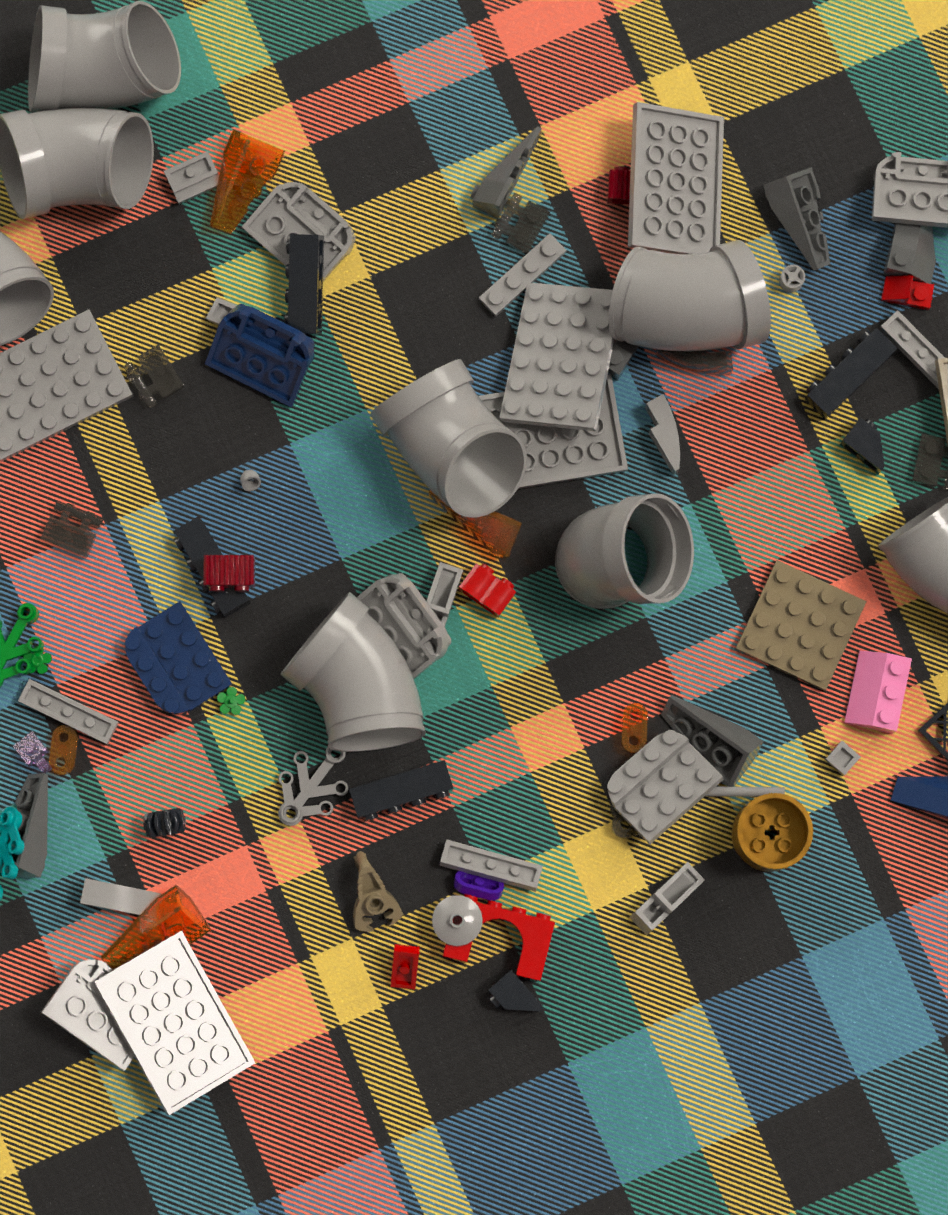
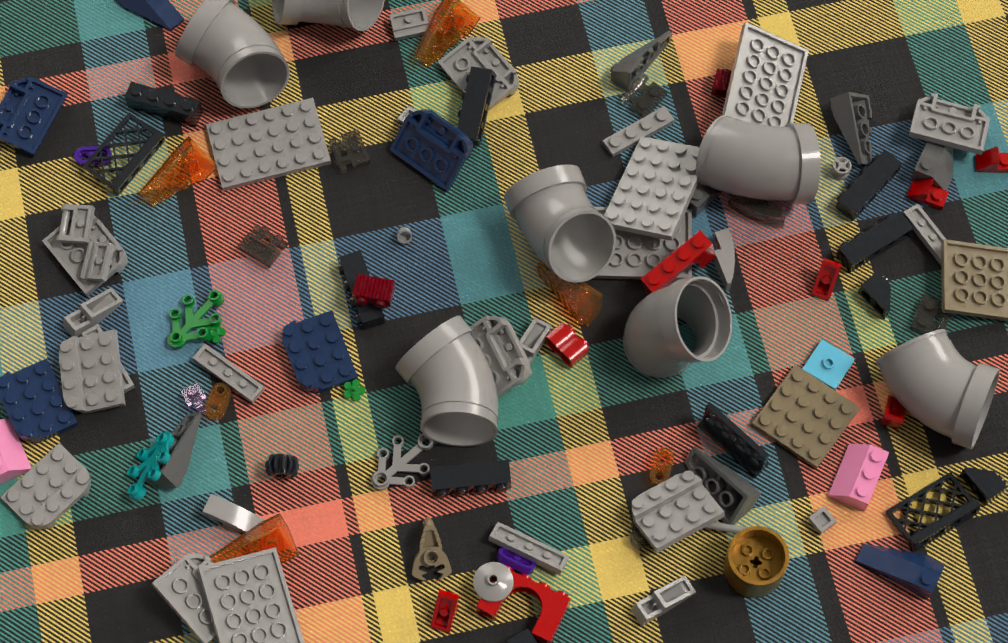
camera: 15 degrees right, 15 degrees down
(620, 450) = (695, 250): none -> red arch
(717, 680) = (733, 441): none -> black fence
(797, 438) = (826, 279): none -> red slope
(818, 551) = (828, 364): none -> medium azure plate
(831, 296) = (868, 185): none -> black brick
(908, 602) = (893, 413): none -> red slope

